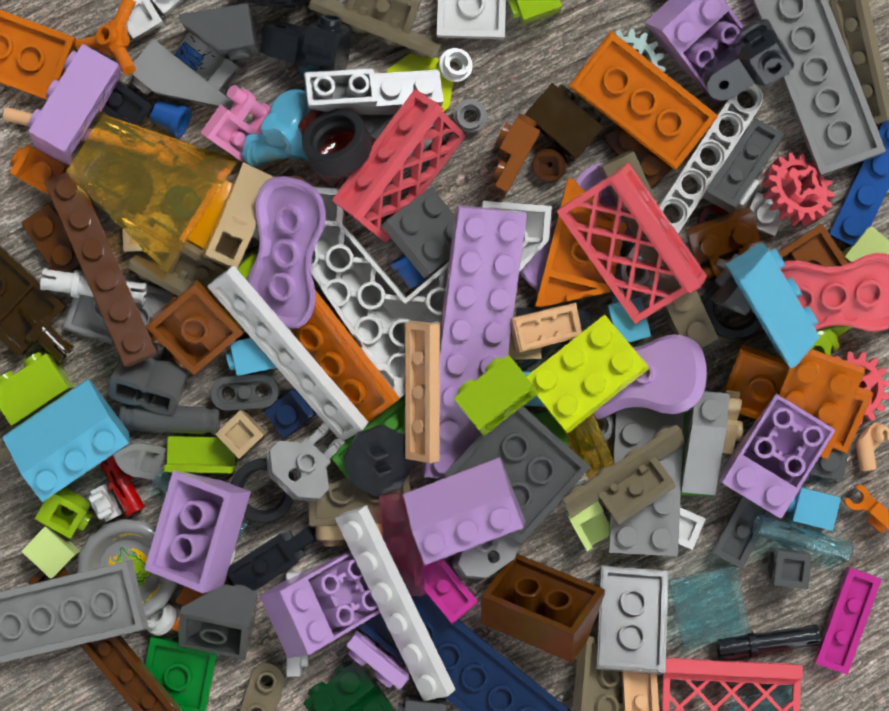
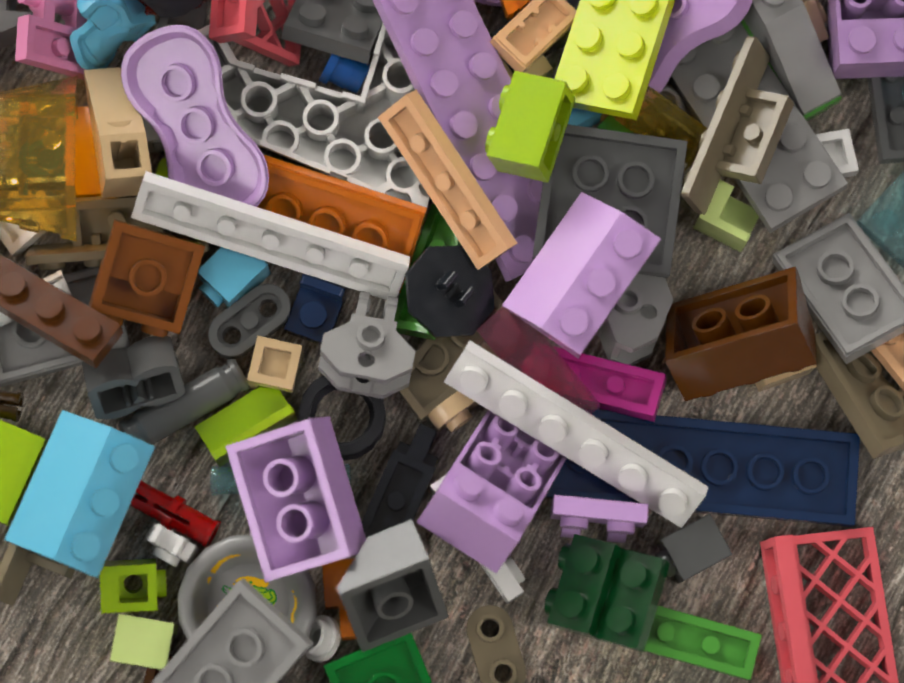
camera: 45 degrees left, 10 degrees down
(140, 459) = (180, 468): light grey plate -> none

